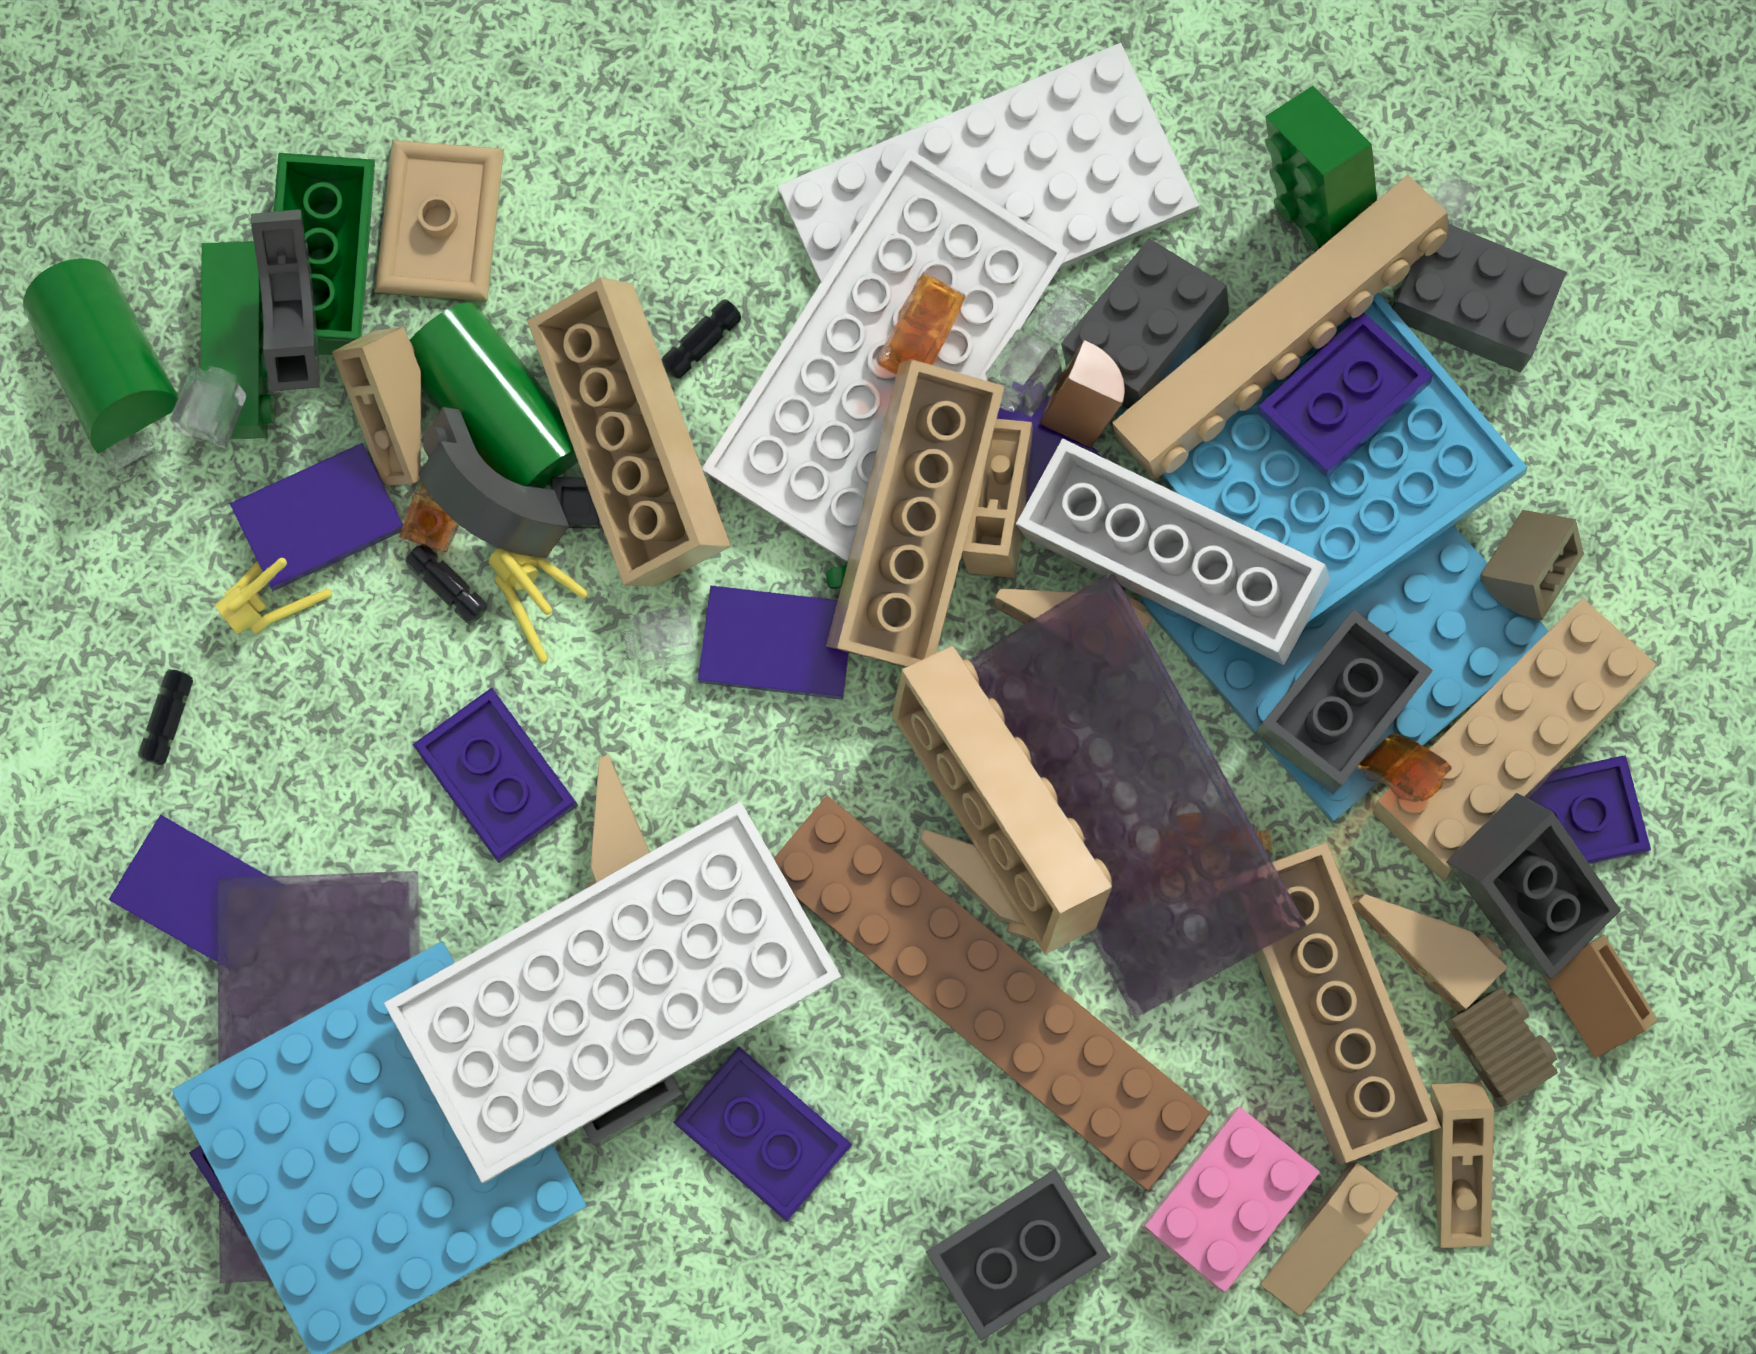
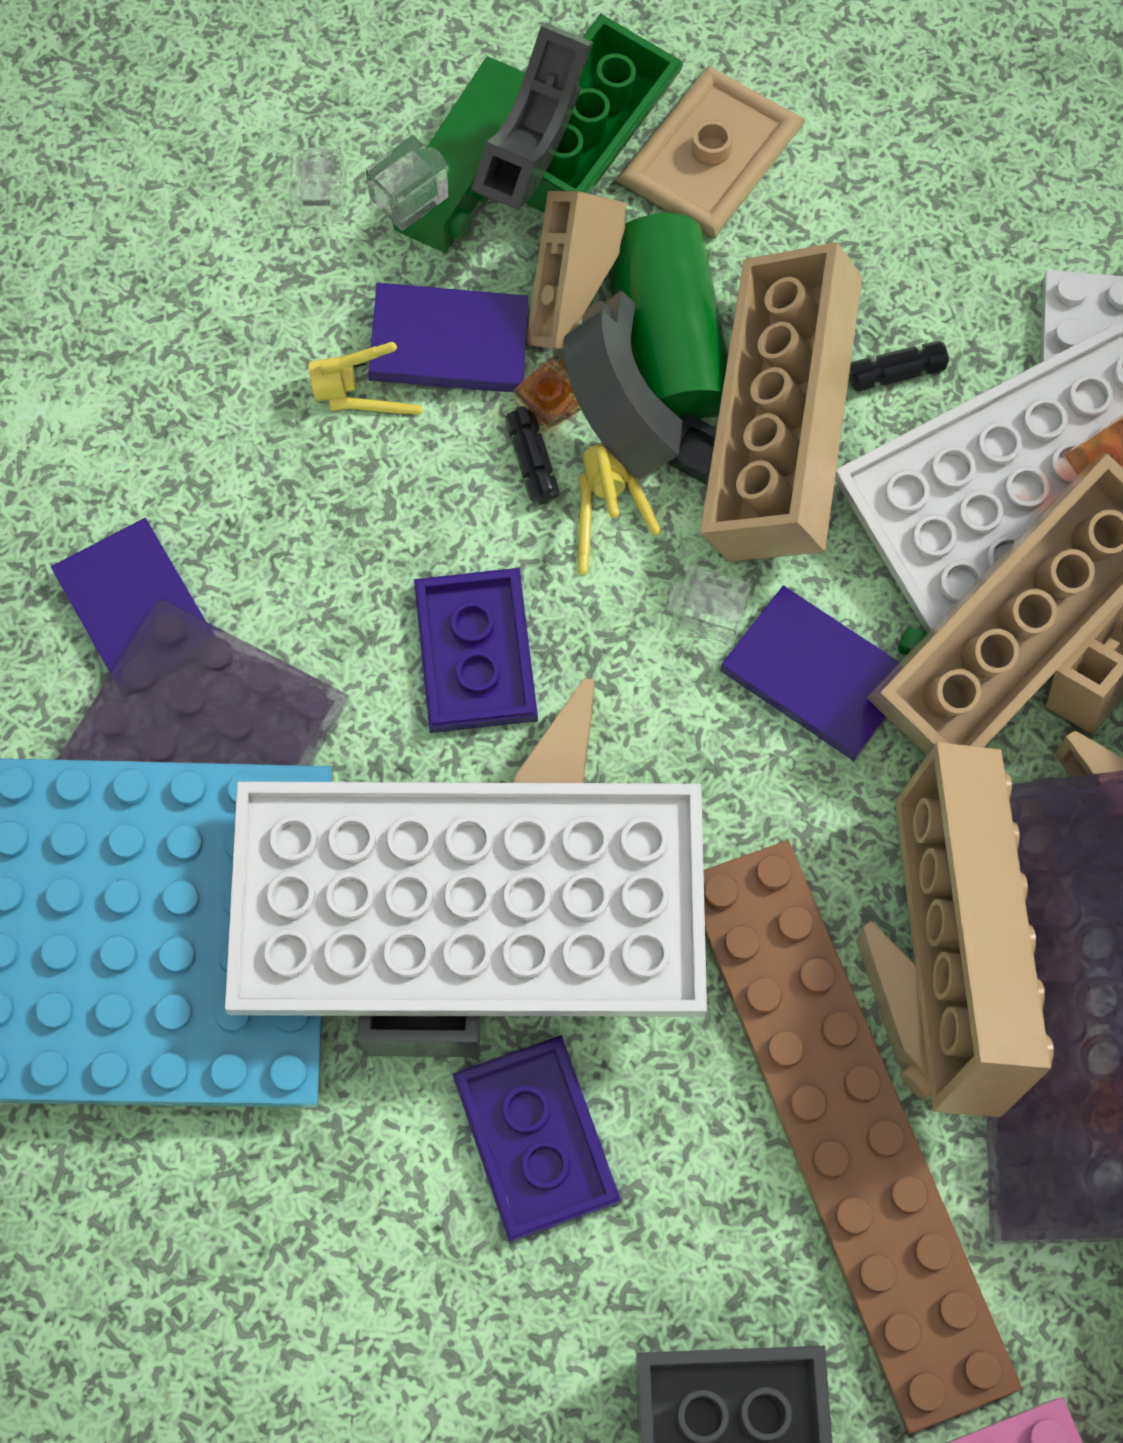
camera: 30 degrees right, 10 degrees down
(98, 350) = (340, 95): green brick -> none
(165, 717) = (204, 437): black axle -> none

